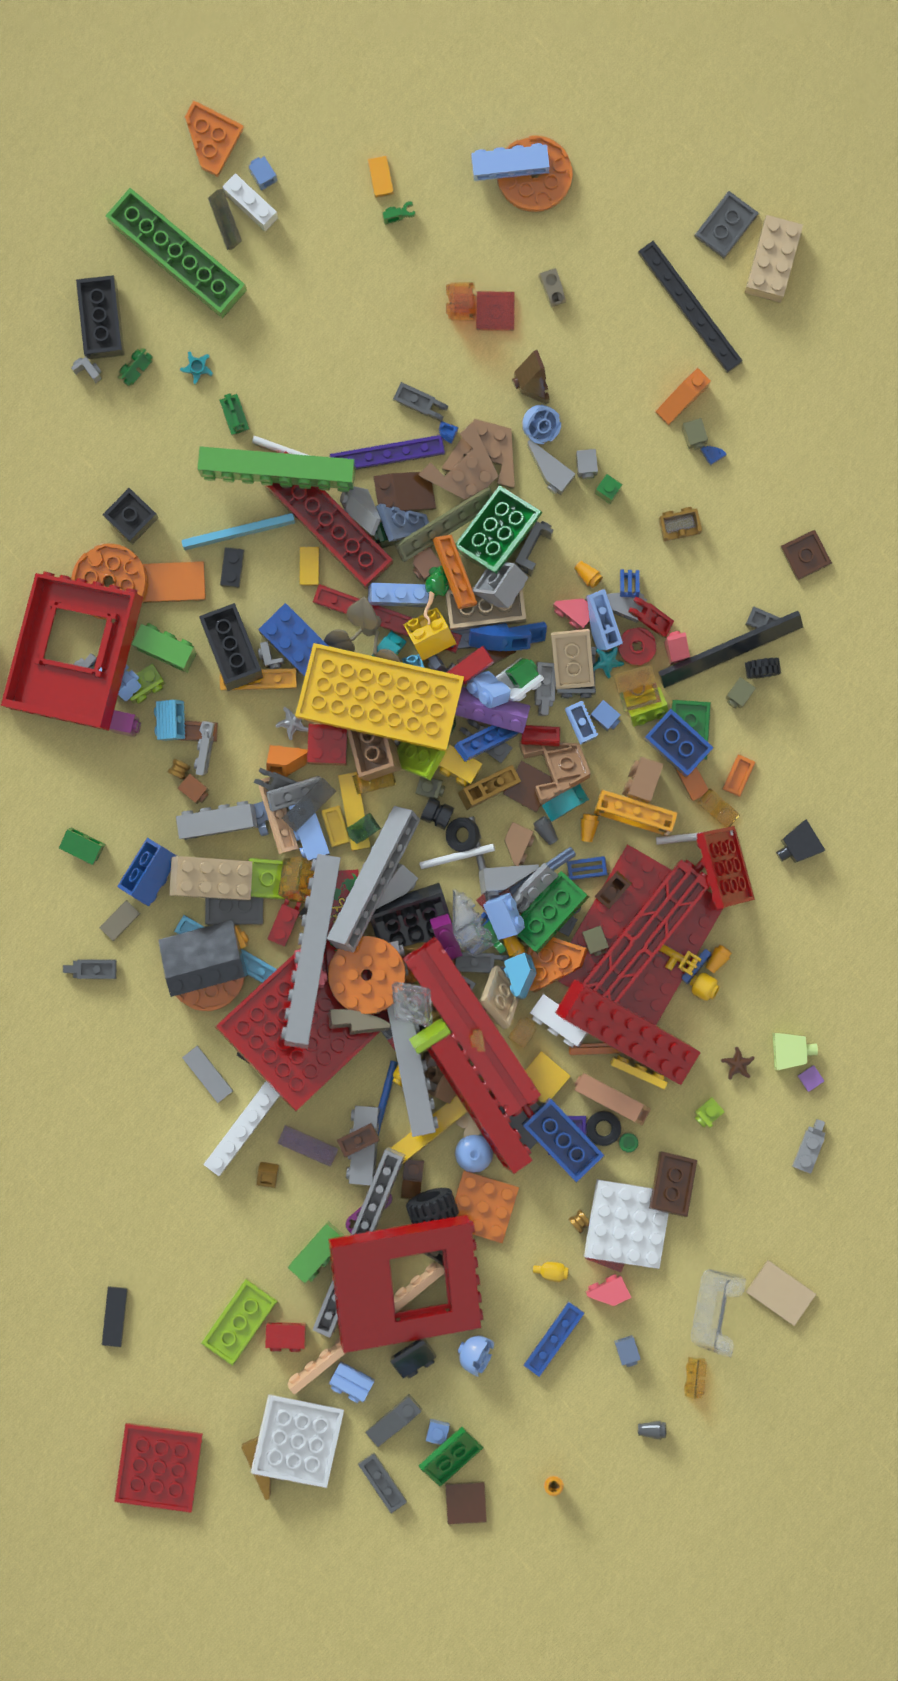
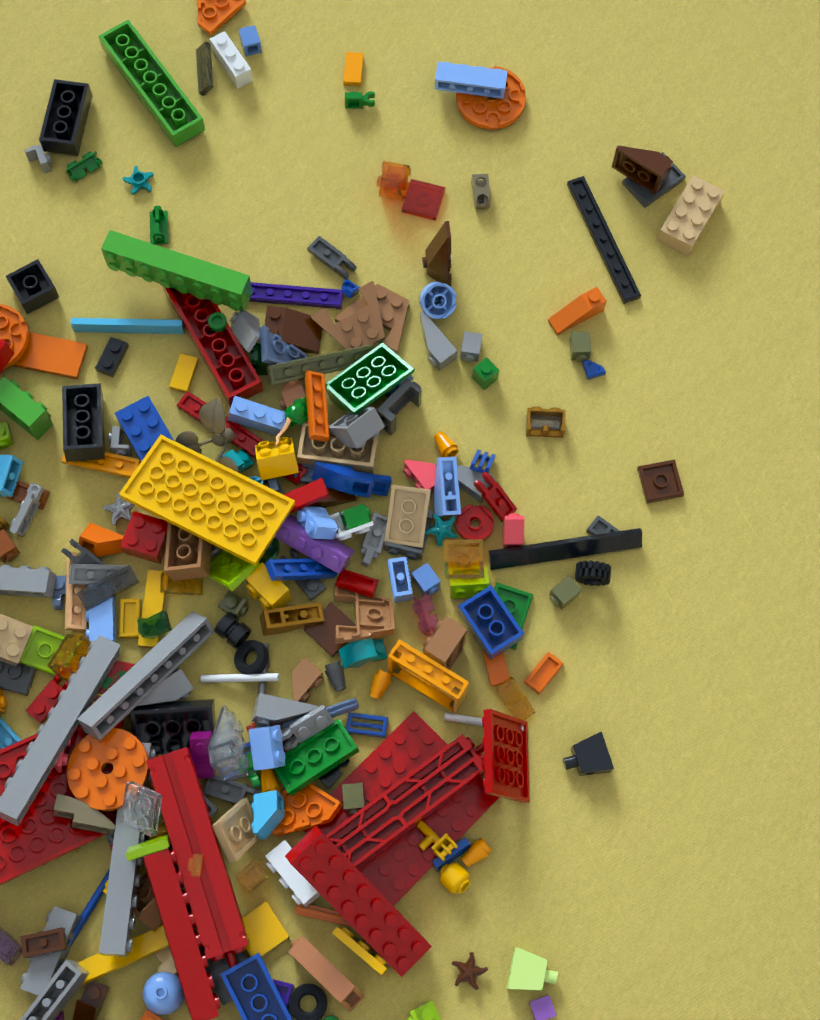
camera: 10 degrees right, 15 degrees down
(330, 508) = (217, 322): none -> green tile
(610, 744) = (422, 609): none -> clear pink hinge
(613, 889) = (386, 750): reddish brown slope -> none
(715, 220) = (643, 166): none -> reddish brown slope

